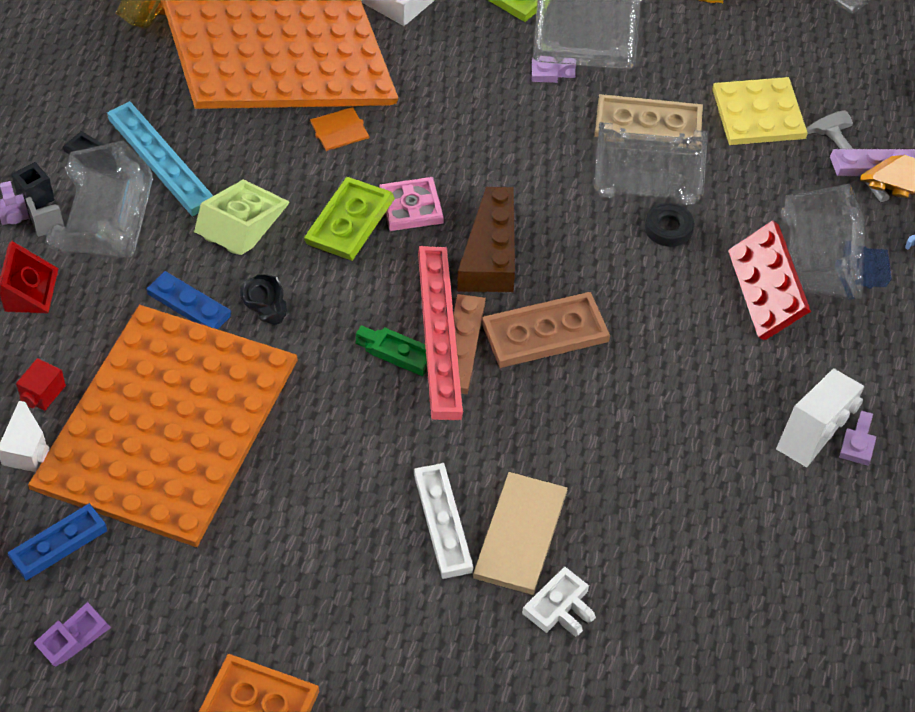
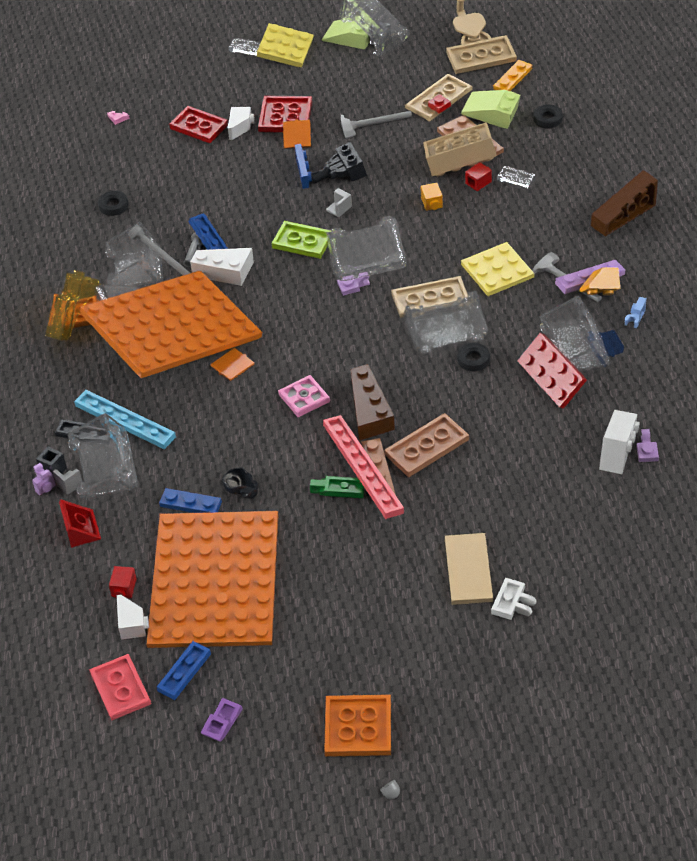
camera: 15 degrees left, 5 degrees down
(238, 216) = (197, 439): yellowish green slope -> none
(349, 218) = (270, 417): lime plate -> none
(443, 521) = (418, 577): white plate -> none

